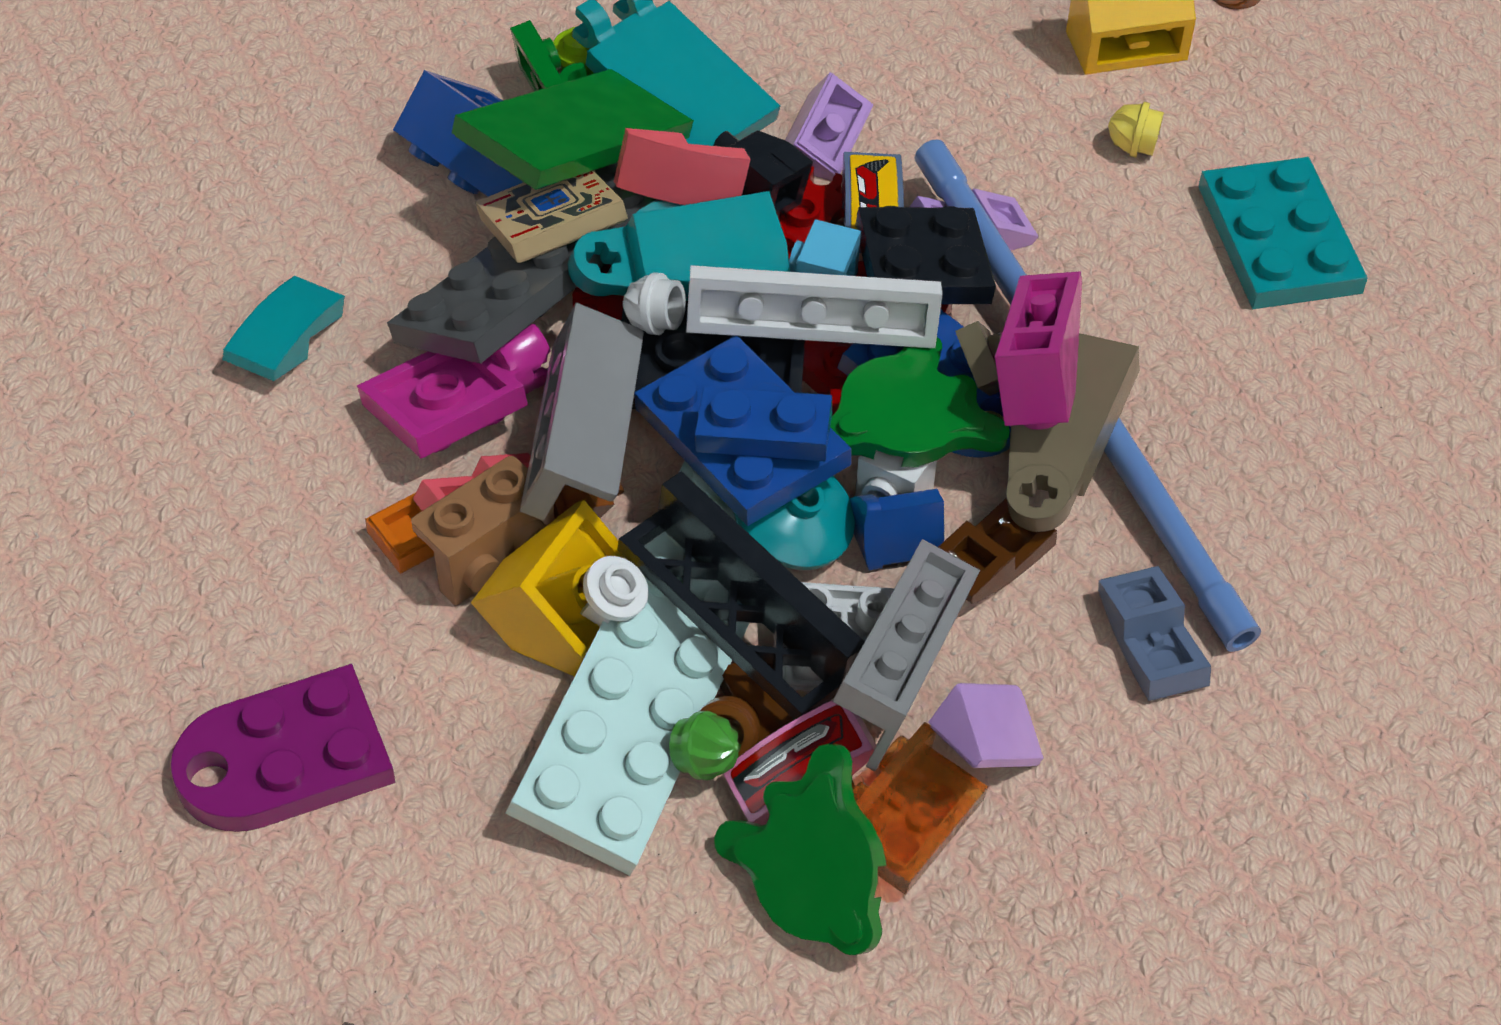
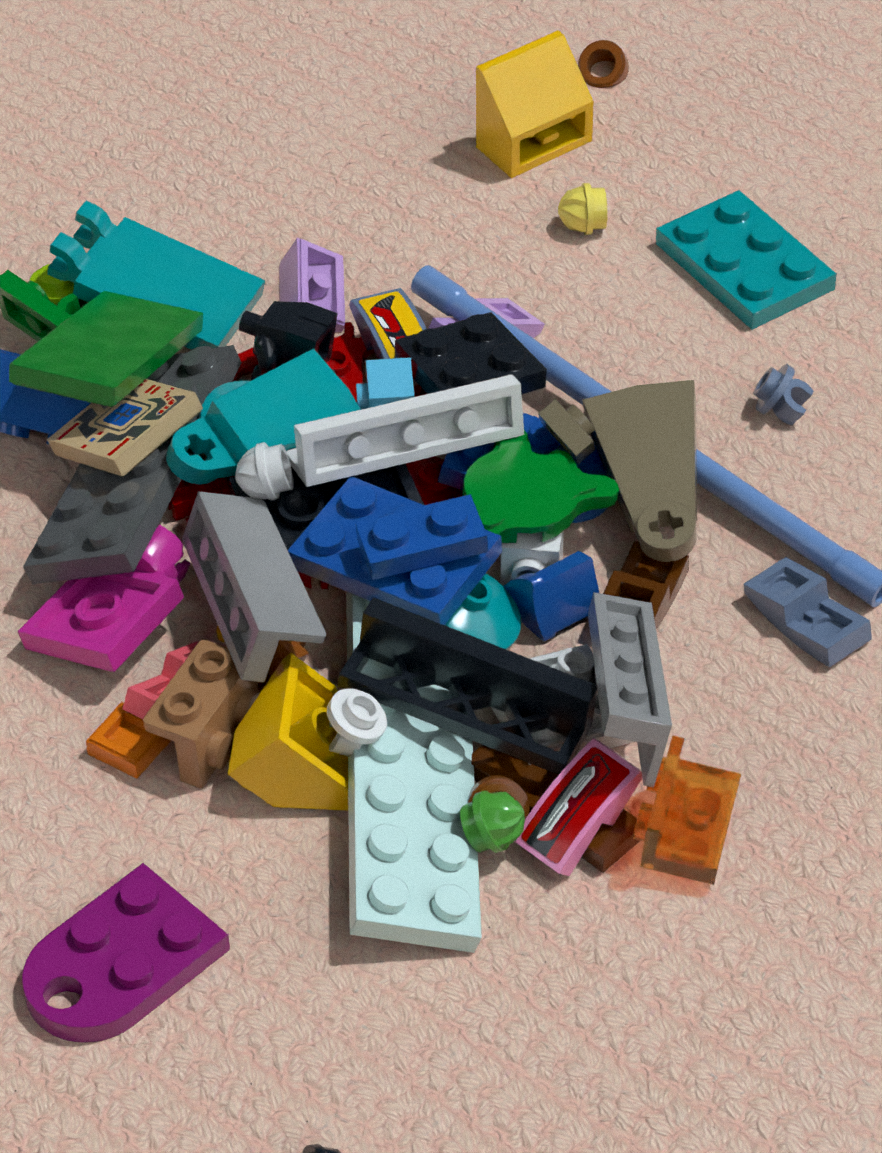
camera: 20 degrees left, 5 degrees down
(679, 172) = (225, 354): coral slope -> none
(813, 856) = (633, 874): green tile -> none
(988, 726) = (720, 723): lavender slope -> none
(1040, 350) = (619, 406): dark pink slope -> none
(1238, 383) = (782, 394): none -> sand blue plate

